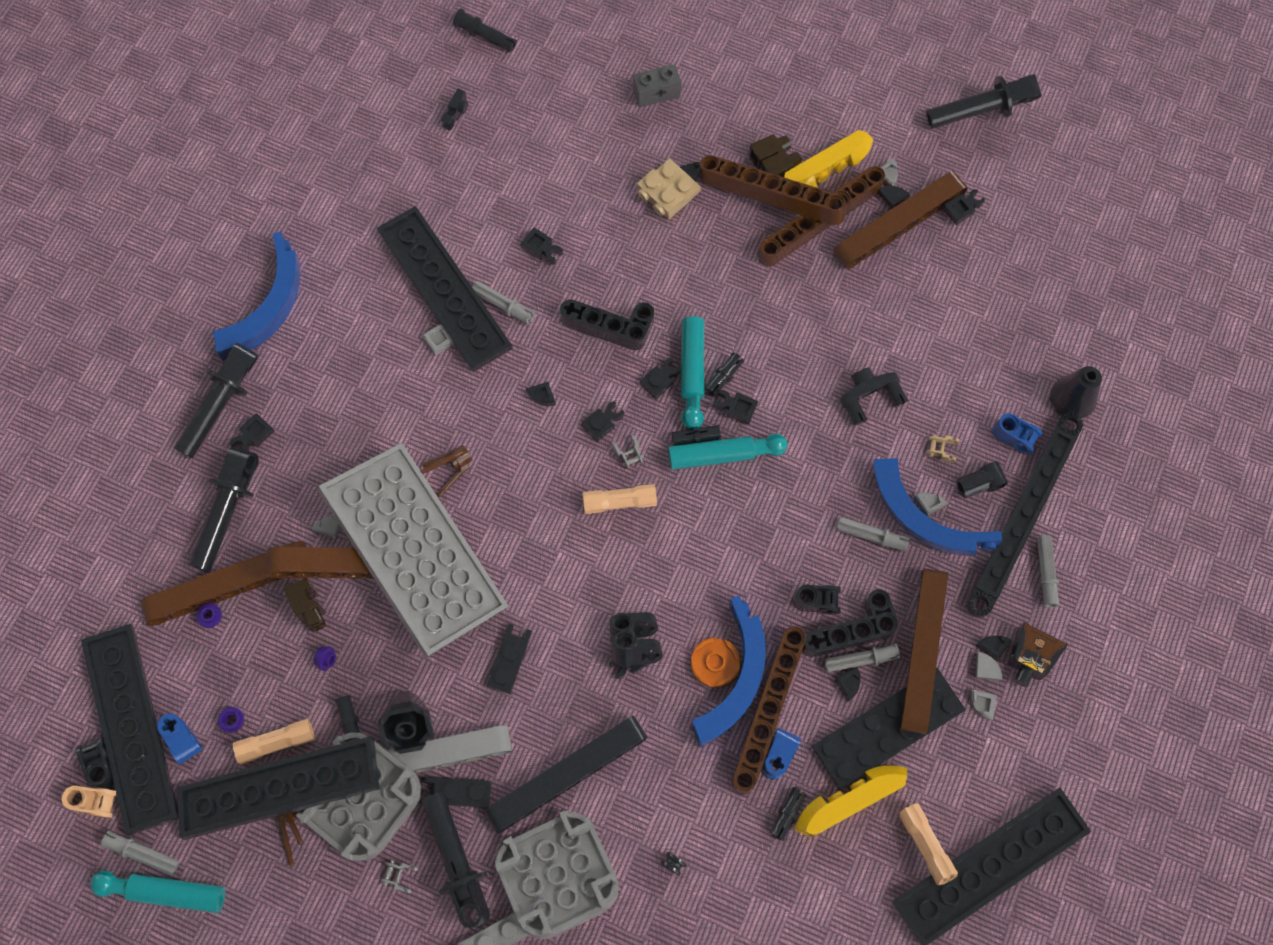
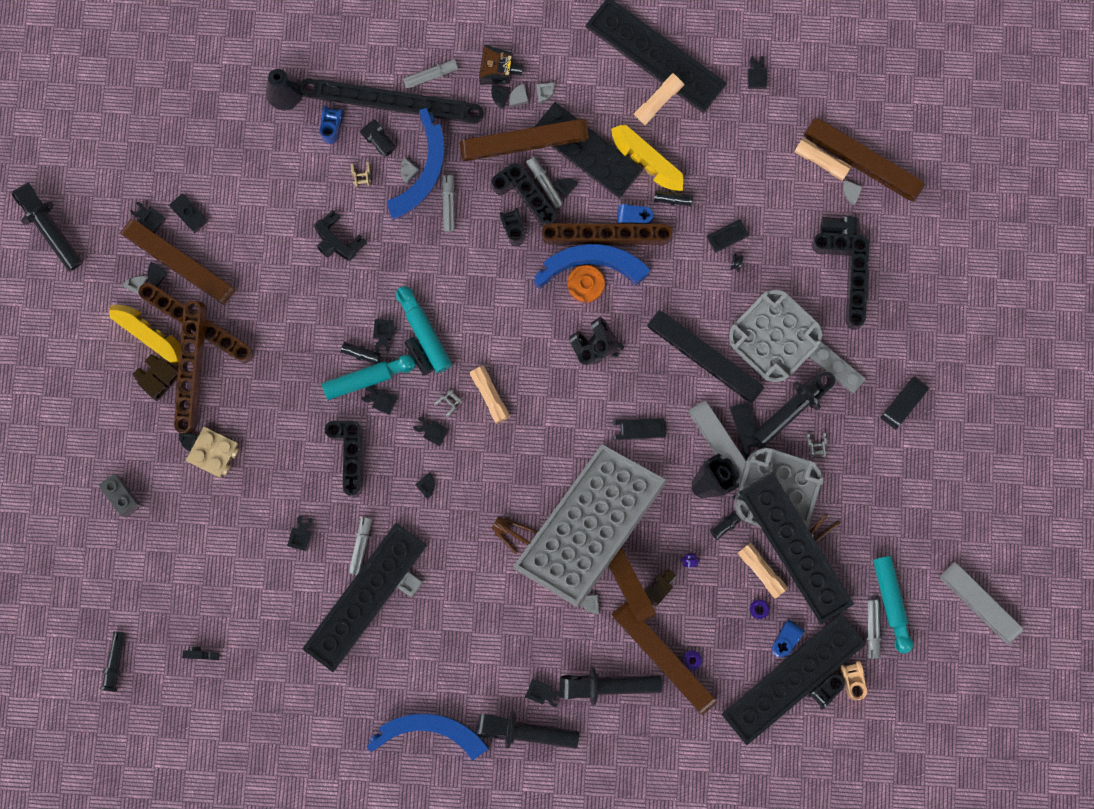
camera: 105 degrees left, 10 degrees up
(713, 866) = (727, 236): none -> black plate
(955, 249) = (188, 213): none -> black plate

